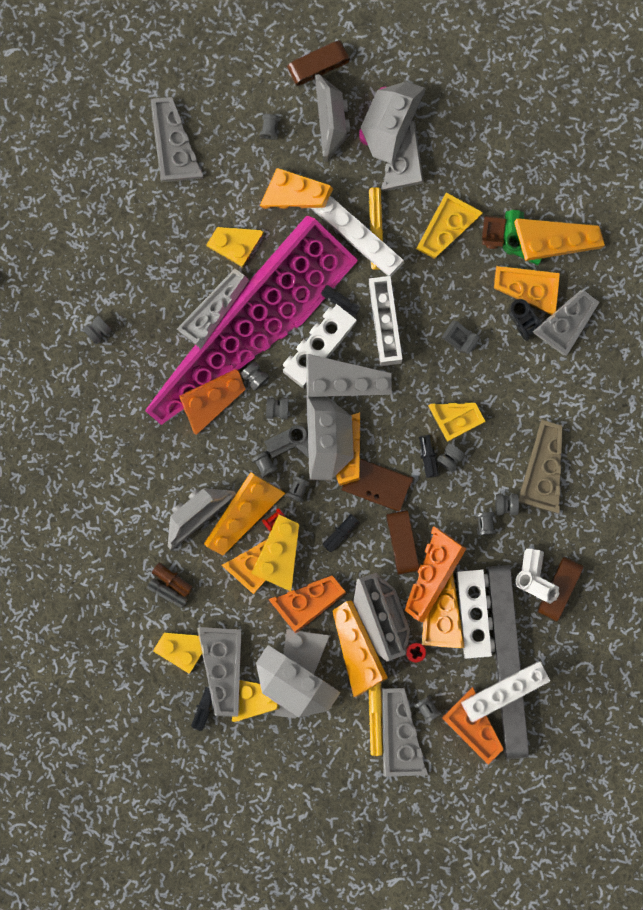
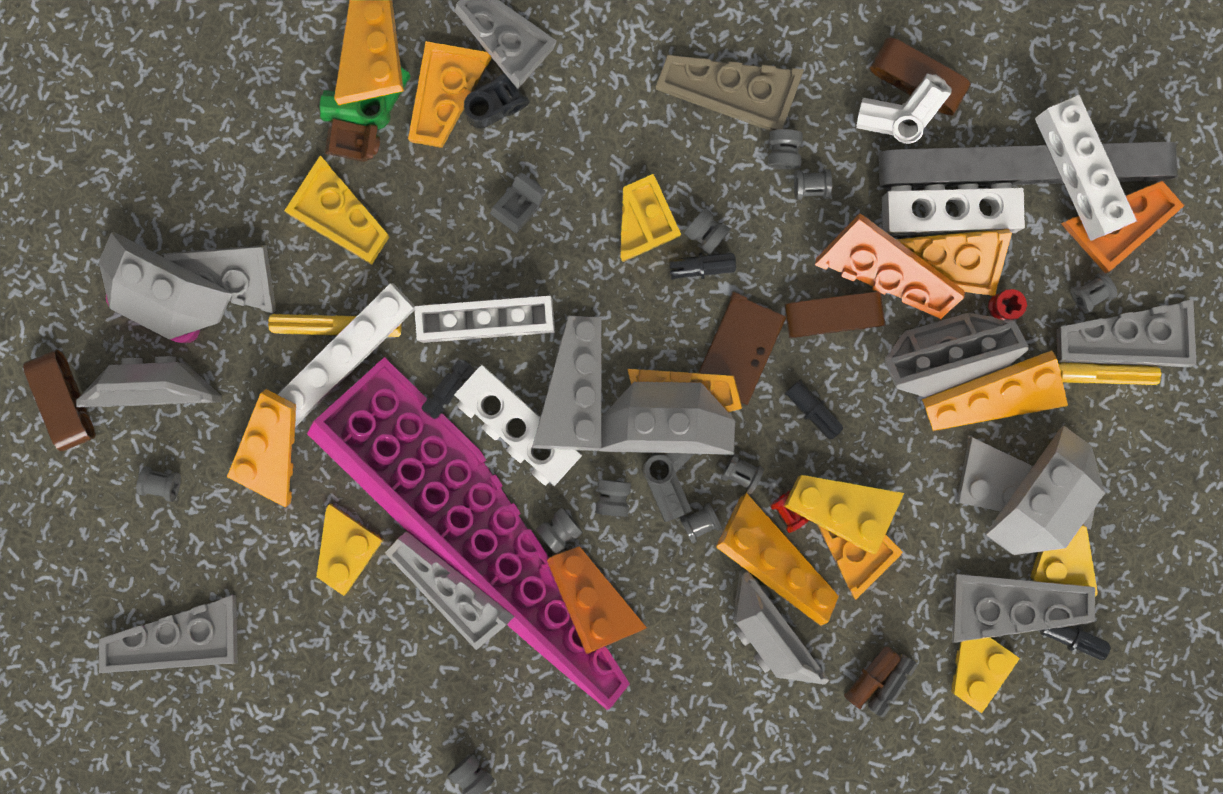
camera: 85 degrees left, 5 degrees up
(305, 604) = (919, 468): orange wing -> none

